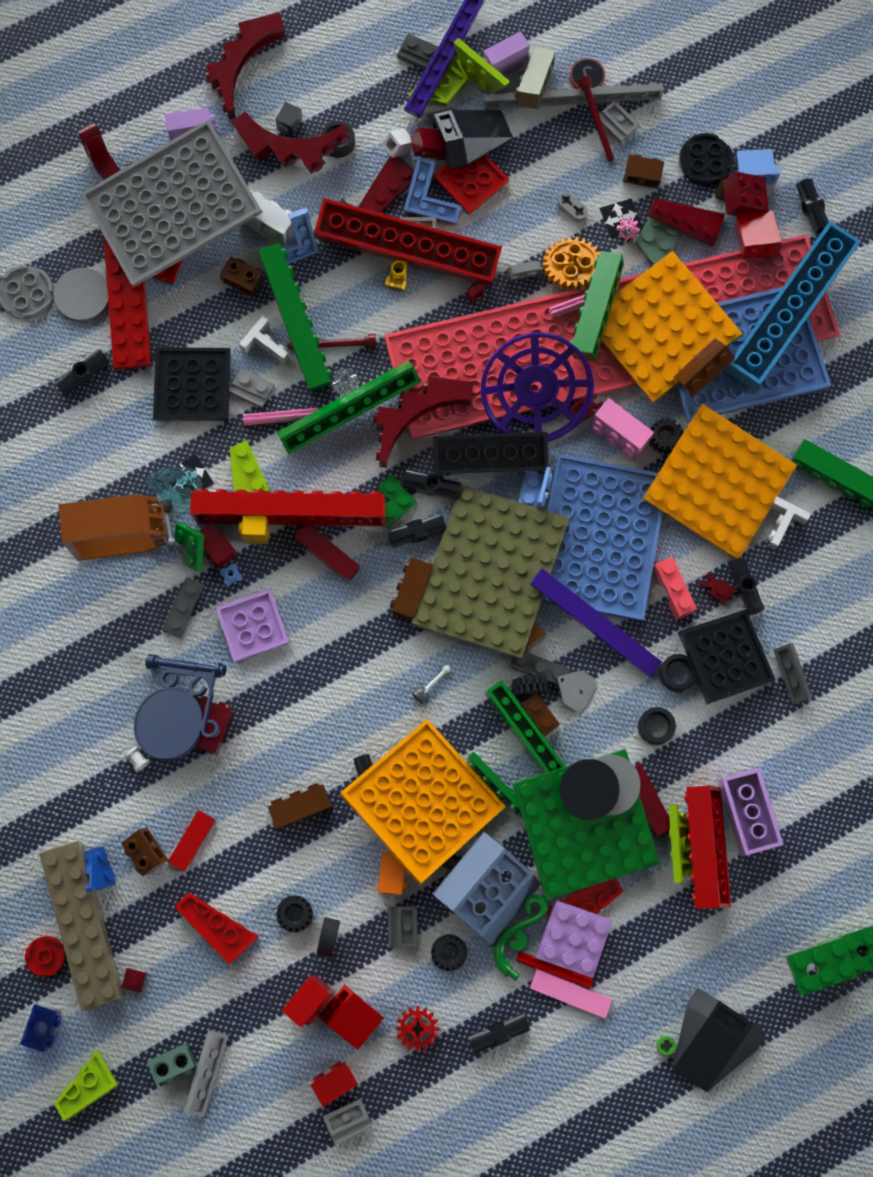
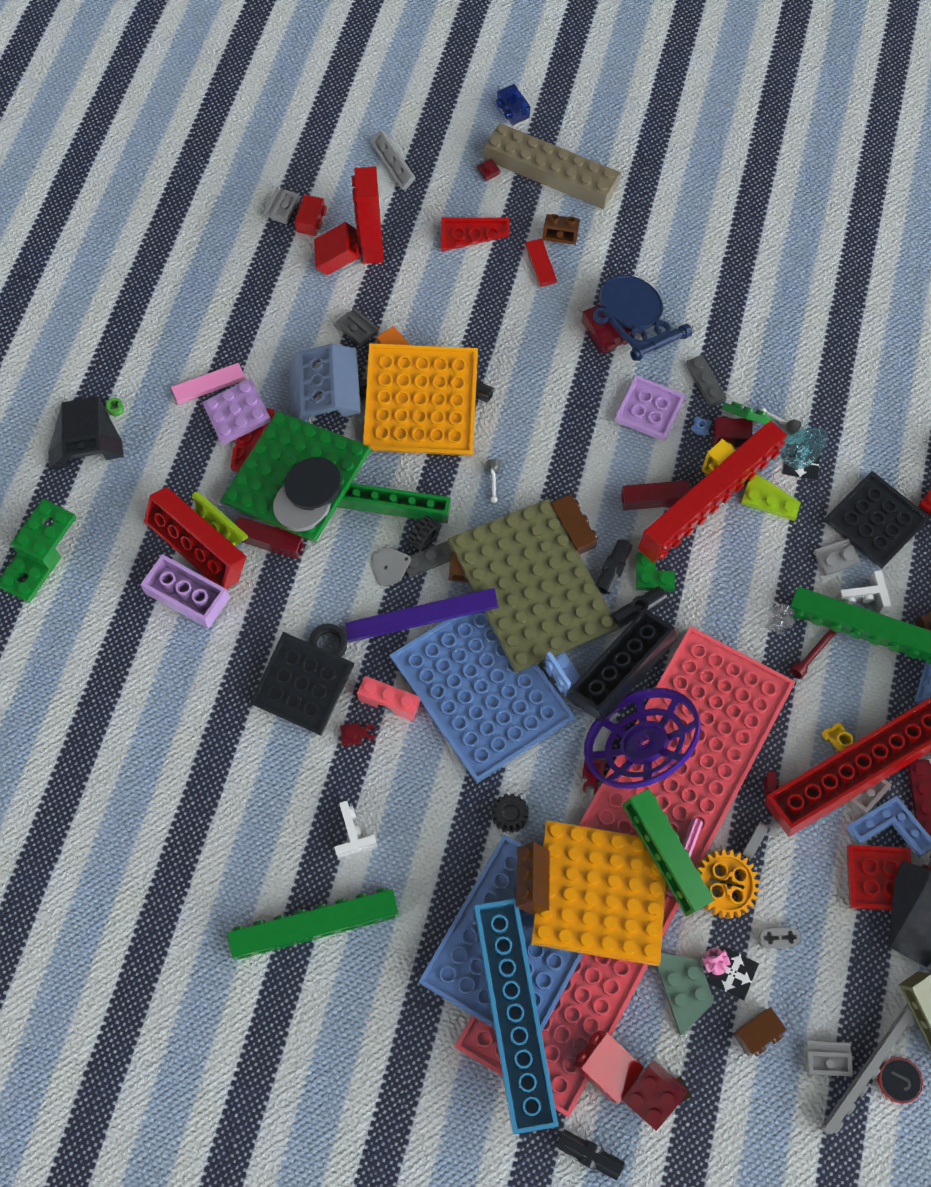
camera: 140 degrees right, 10 degrees down
(45, 956) = (555, 135): red tile -> none
(89, 1086) = (453, 103): lime wing -> none
(98, 869) = (576, 197): blue wing -> none
(112, 526) = (808, 363): dark orange container -> none
(137, 758) = (627, 270): white bush -> none
(170, 1060) = (418, 148): sand green brick -> none
(276, 417) = (794, 556): bright pink axle -> none
(299, 806) = (496, 333): reddish brown brick -> none
(306, 909) = (435, 285): black tyre -> none
(328, 937) = (397, 277): black tyre -> none
(348, 407) = (756, 600): green brick -> none
(426, 1028) = (288, 282): red gear -> none
(436, 394) = (714, 641): dark red arch -> none
(460, 946) = (309, 329): black tyre -> none
(490, 777) = (393, 457): green plate -> none
(498, 1033) = (233, 322): black piece -> none
(515, 930) = (270, 380): green plant -> none
(540, 714) = (397, 522): reddish brown brick -> none
(555, 970) = (255, 377): red axle -> none
(585, 85) = (889, 1054): dark red piece -> none
(621, 429) = (547, 777): bright pink brick -> none
(656, 740) = (306, 579): black tyre -> none
(689, 220) = (675, 1023): dark red wing -> none
(705, 159) = (723, 1106): black tile -> none
(719, 482) = (432, 813): light orange plate -> none
(749, 597) = (347, 758): black piece -> none
(759, 164) = (674, 1144): light blue bracket -> none
(792, 673) = (240, 720): dark grey plate -> none

